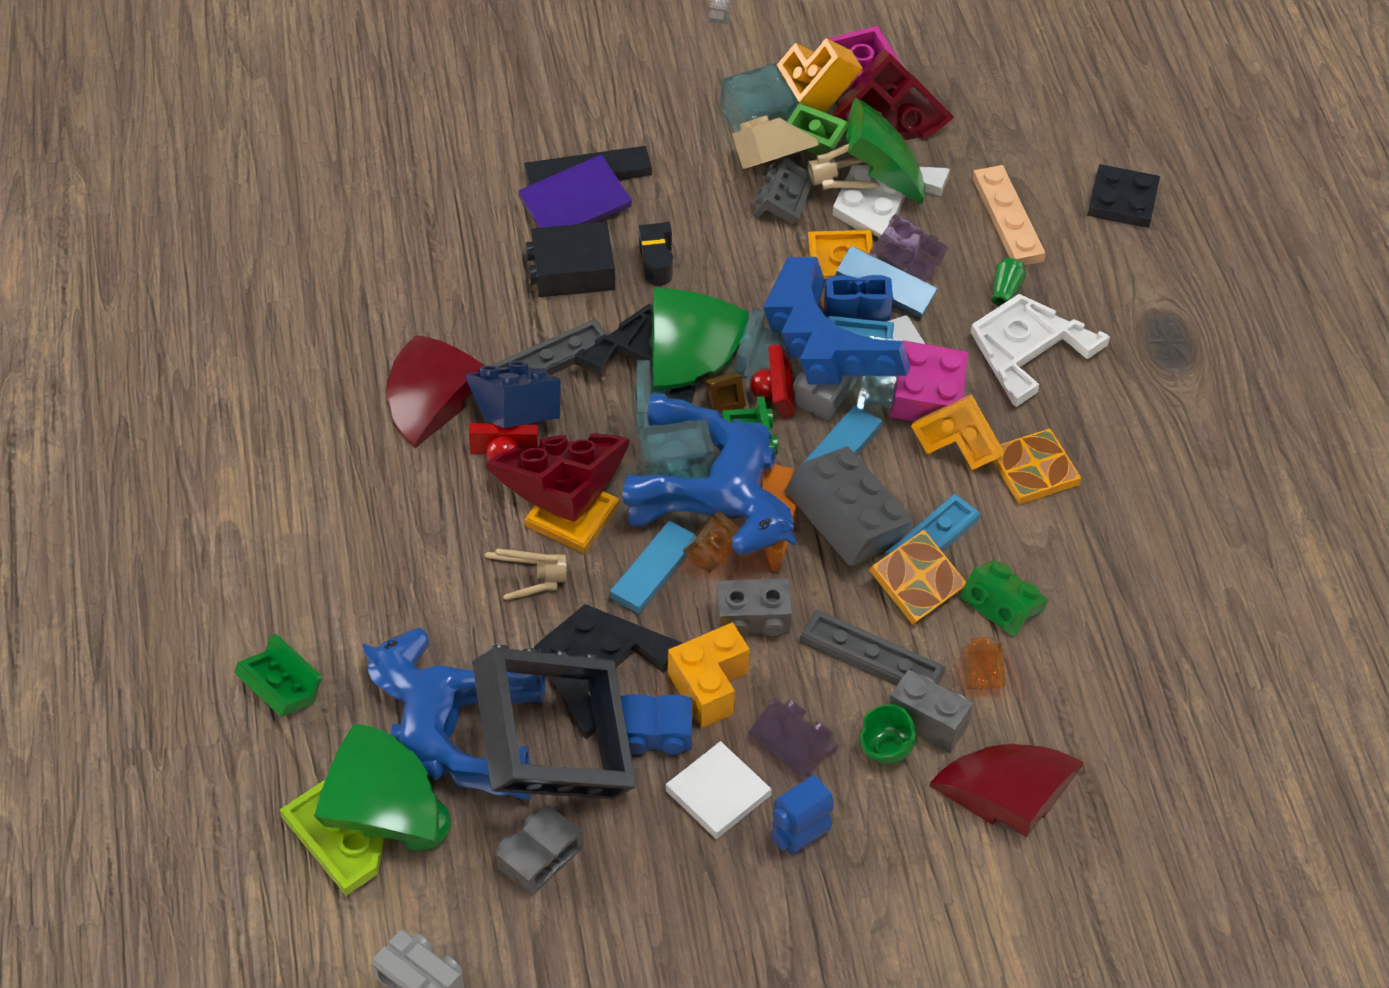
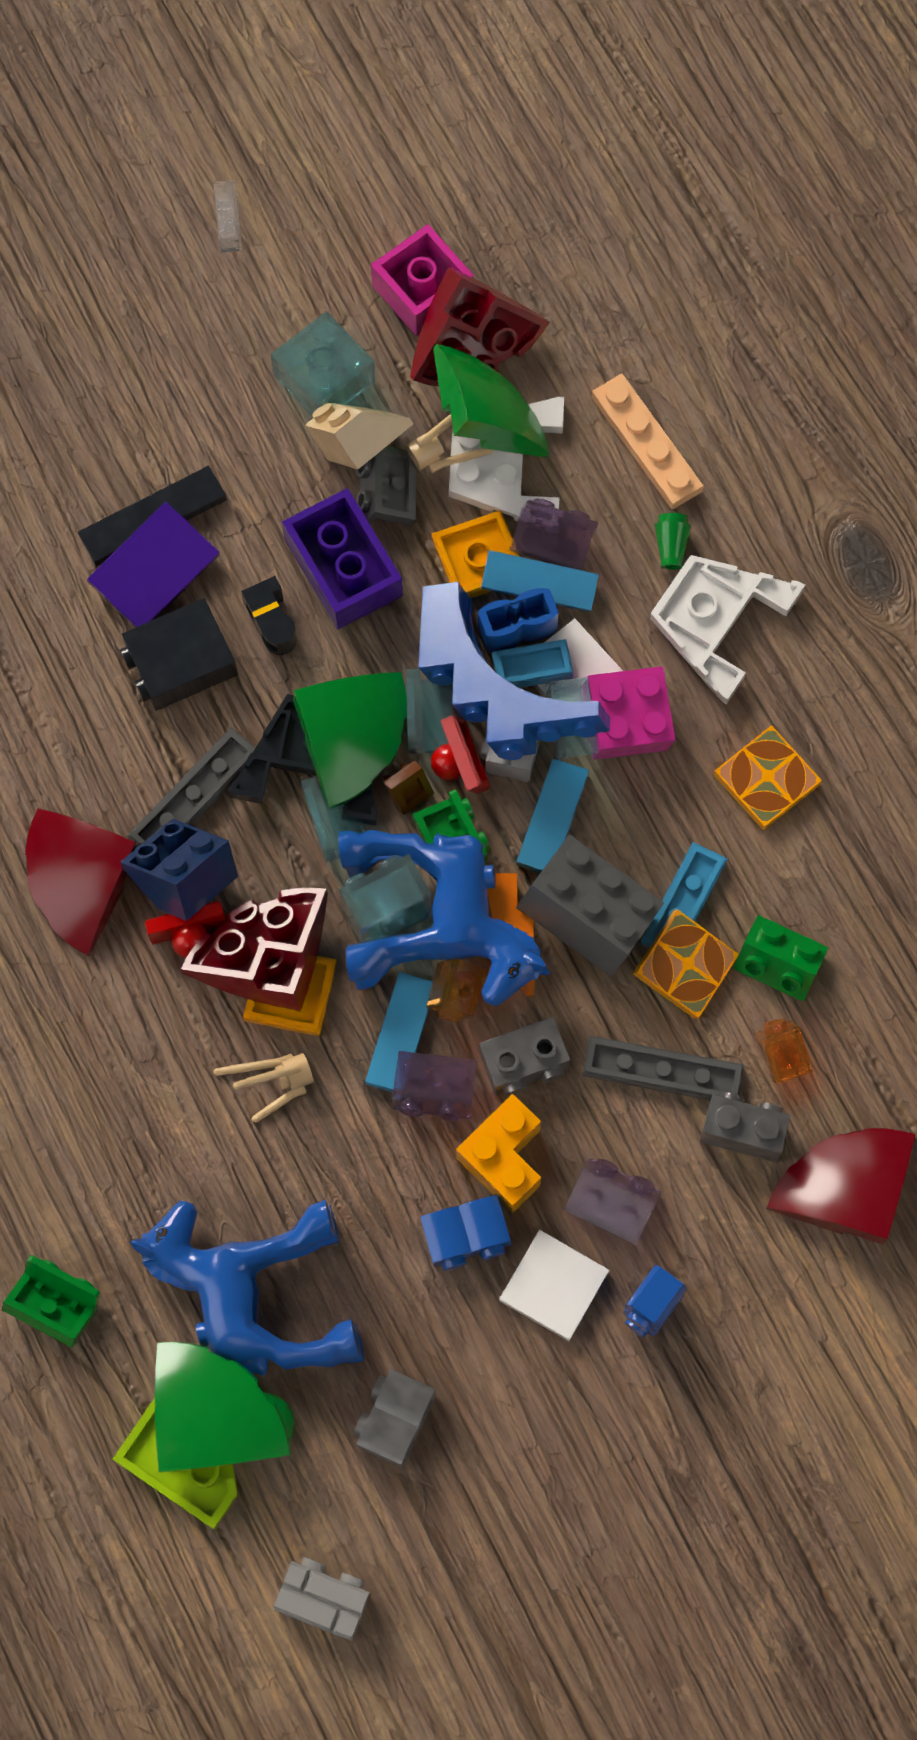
camera: 15 degrees left, 20 degrees up
(500, 734) = (318, 1315): black window -> none
(608, 637) = (364, 1160): black wing -> none
(667, 607) = (434, 1085): none -> clear purple bracket
(729, 225) = (342, 558): none -> dark purple brick
(820, 75) = (382, 323): light orange brick -> none
(820, 125) = (401, 396): bright green slope -> none
(887, 734) = (710, 1172): green hair -> none
(961, 423) = (680, 760): light orange plate -> none
(1124, 195) = (767, 374): black plate -> none

